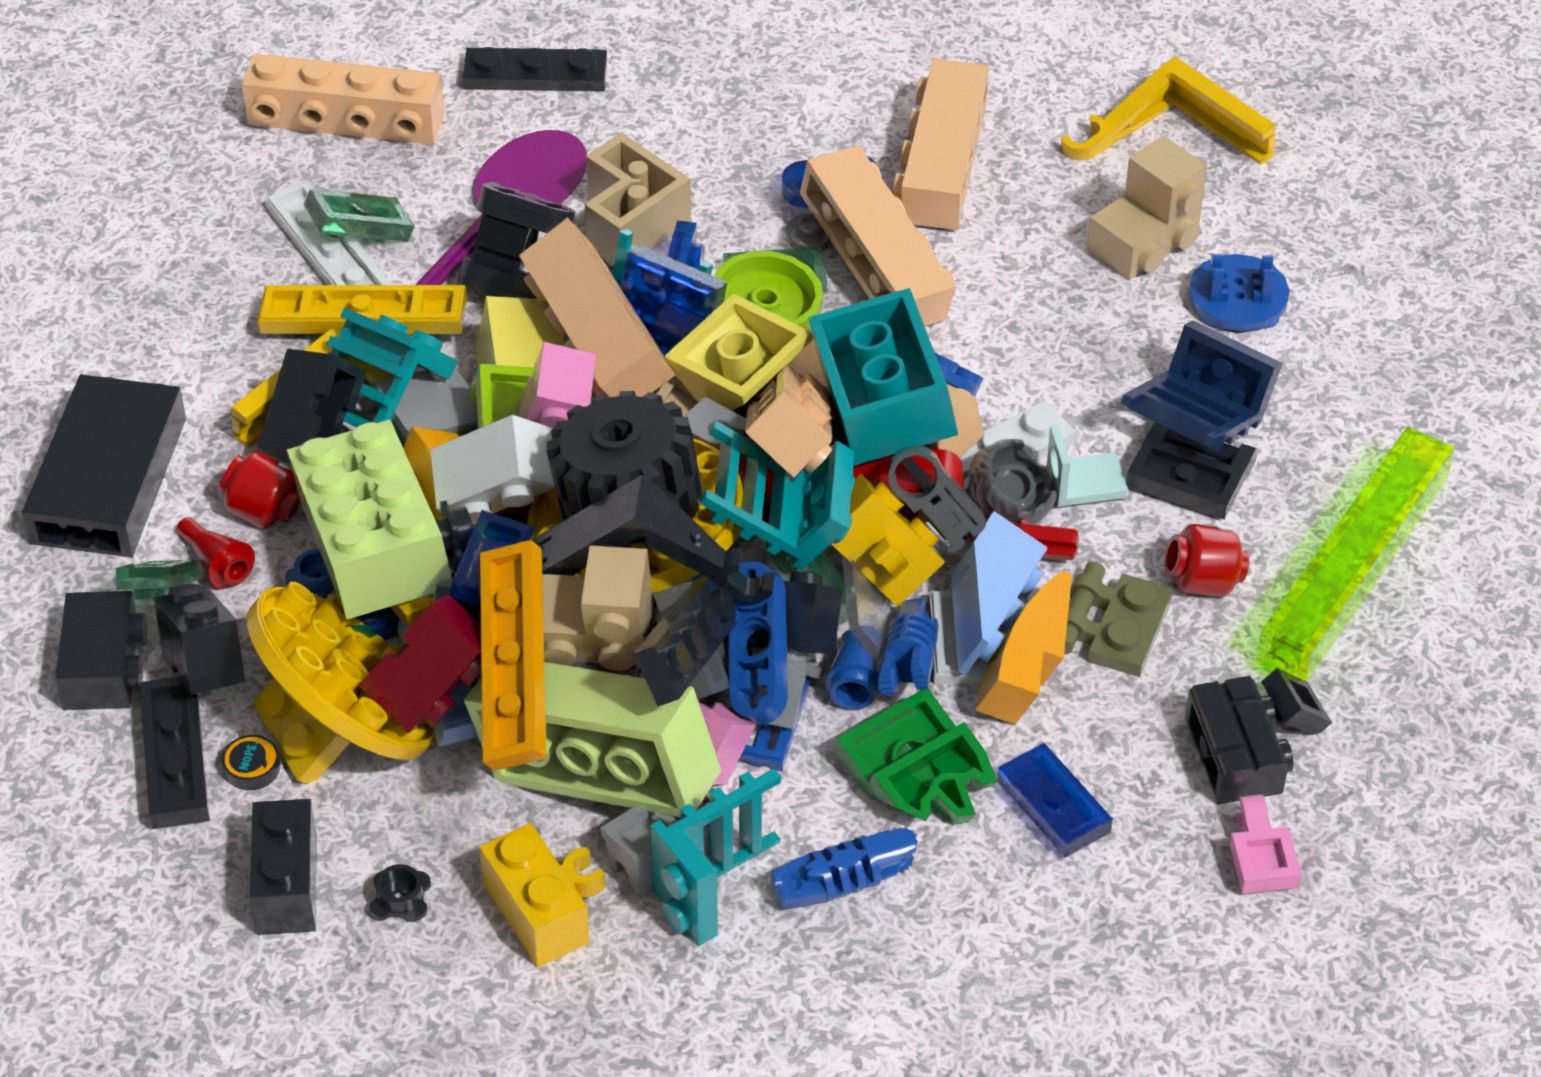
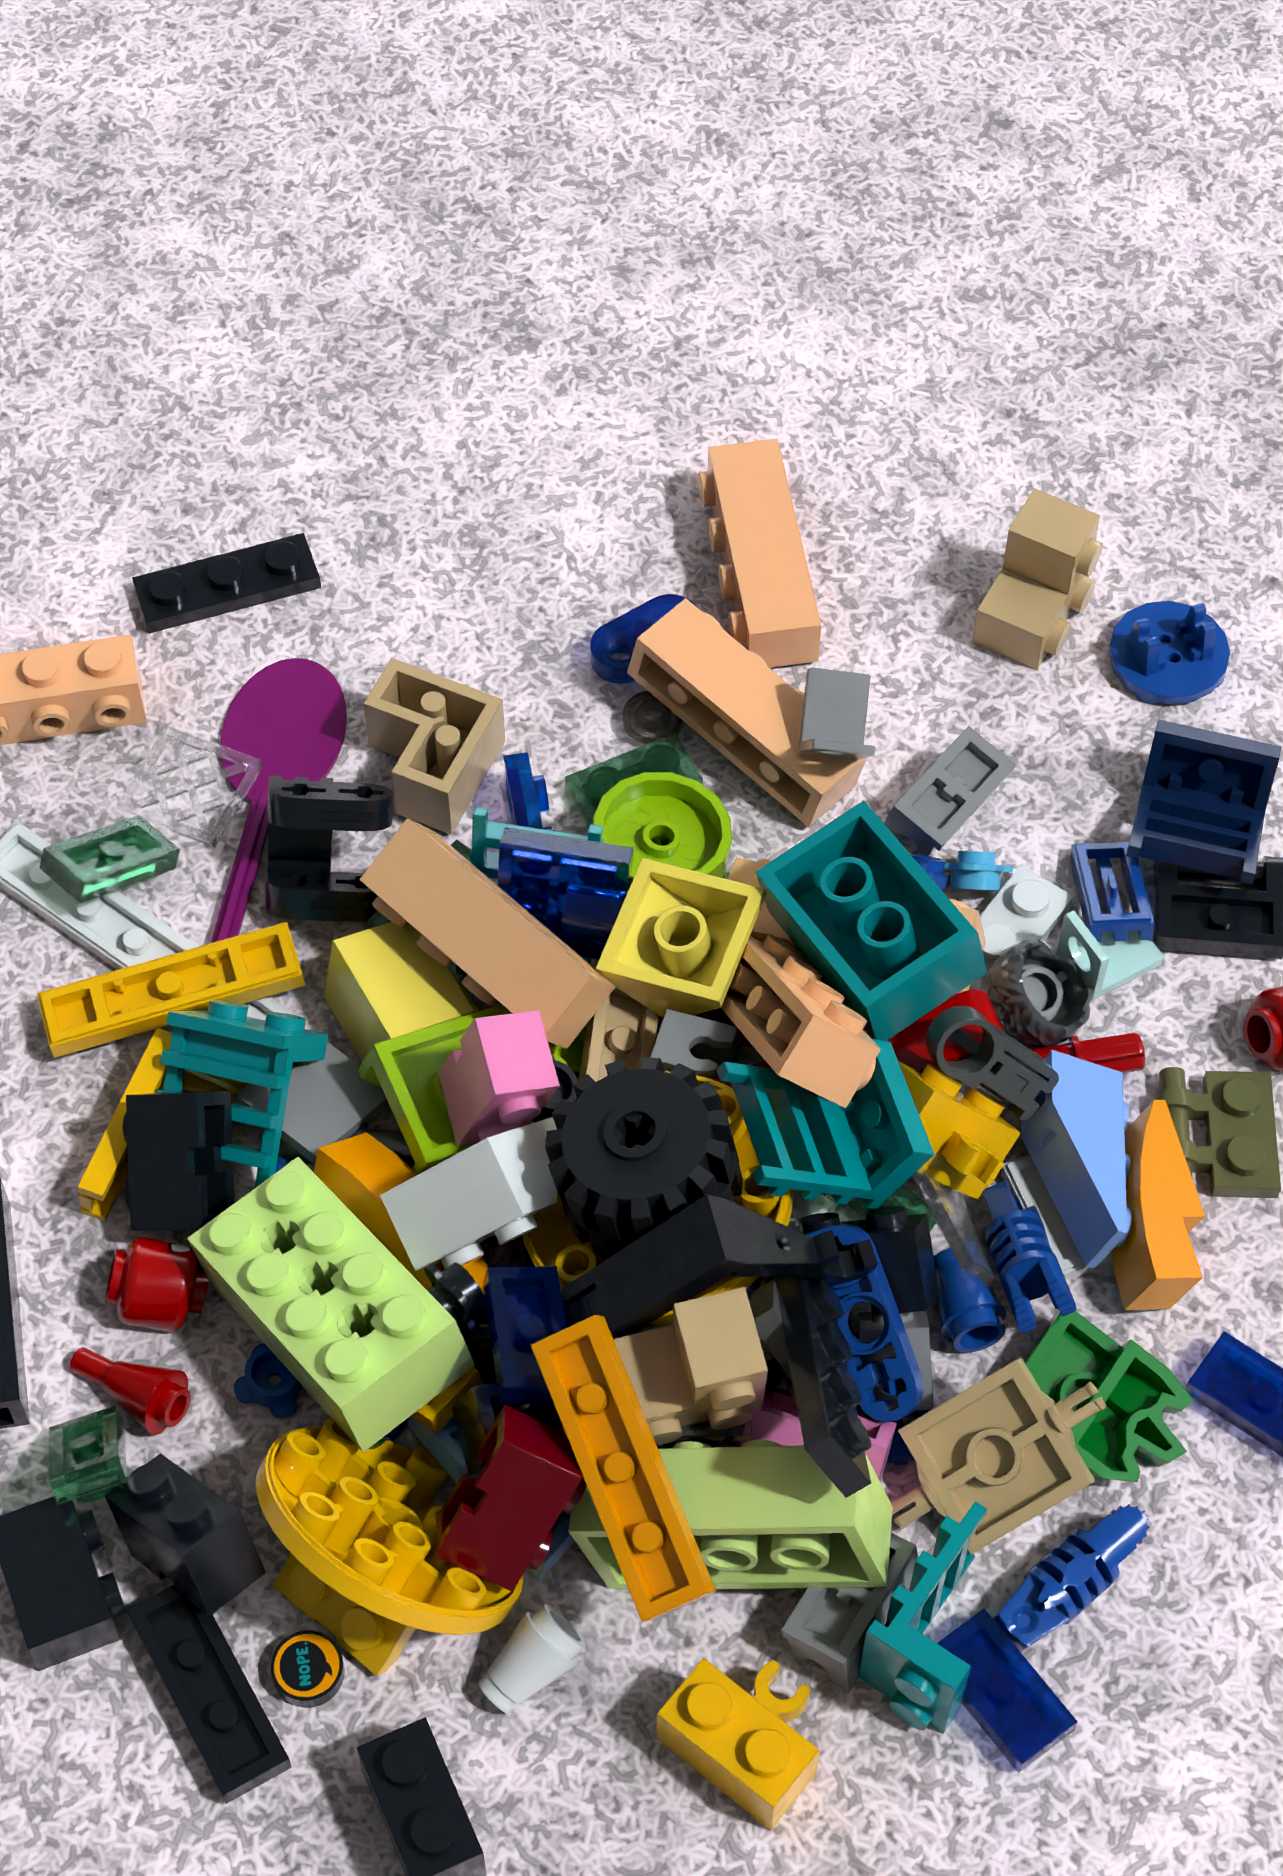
camera: 20 degrees left, 10 degrees up
(395, 880) = (575, 1771): black plate -> none
(412, 798) = (532, 1658): none -> white cone
(420, 174) = (172, 822): none -> clear window
(754, 927) = (1007, 1693): none -> clear blue plate
(825, 763) = (999, 1448): none -> tan plate
(934, 247) = (835, 714): none -> light grey bracket
(1006, 393) = (976, 871): none -> medium azure plate
(1007, 332) = (949, 792): none -> light grey hinge
(1102, 450) = (1116, 920): none -> blue tile
(1196, 96) = (1020, 409): yellow hinge -> none

